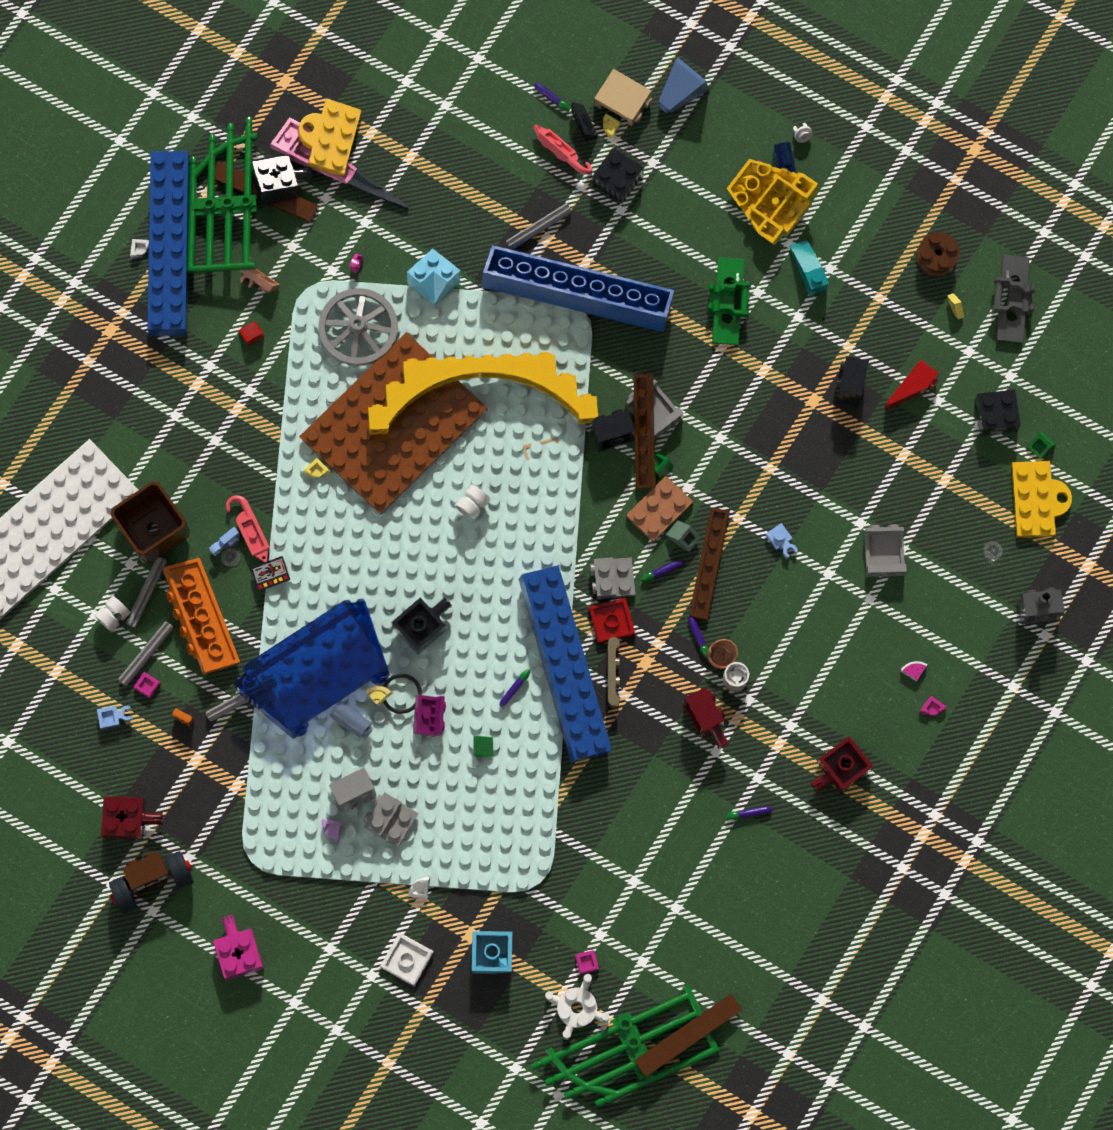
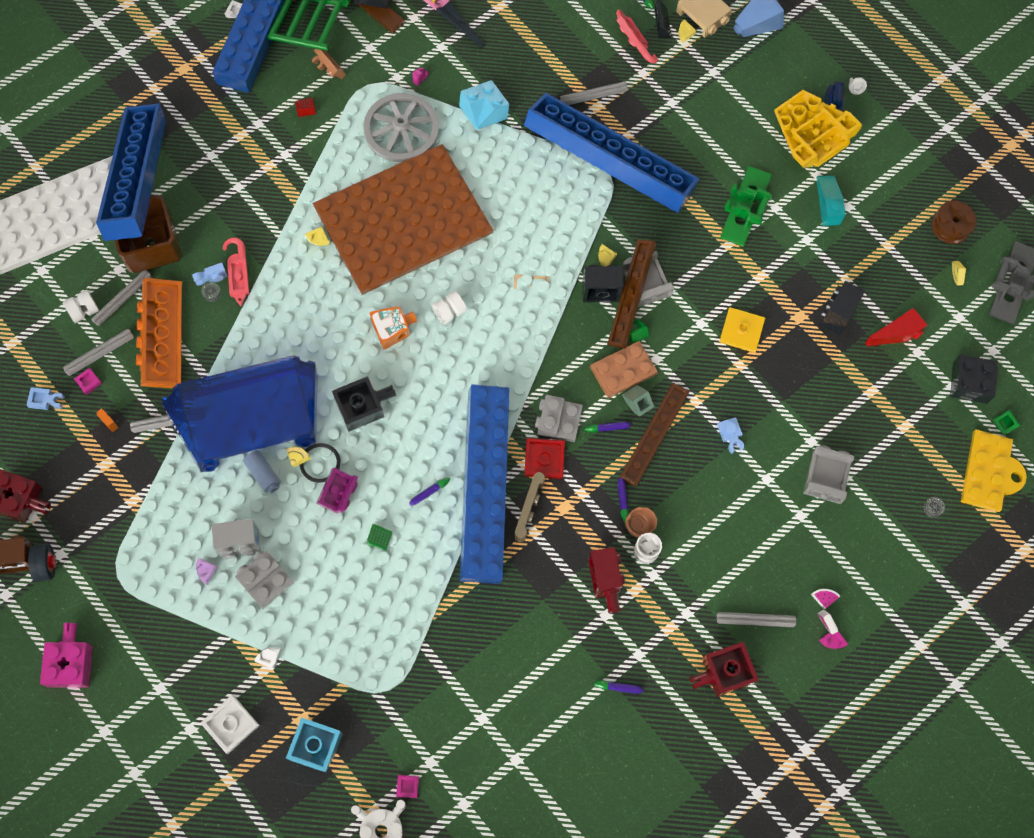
camera: 15 degrees right, 5 degrees down
(118, 464) = (131, 173): none -> blue brick
(270, 573) = (240, 315): piece -> none
(422, 537) = (391, 325): none -> torso
(528, 369) = (447, 182): yellow arch -> none
(606, 398) = (606, 255): none -> light yellow tile
(617, 175) = (678, 71): black brick -> none
(761, 432) = (742, 330): none -> yellow plate
(855, 711) = (756, 619): none -> light grey axle
(918, 688) = (828, 621): none -> white tile
(1040, 606) = (970, 574): dark grey brick -> none

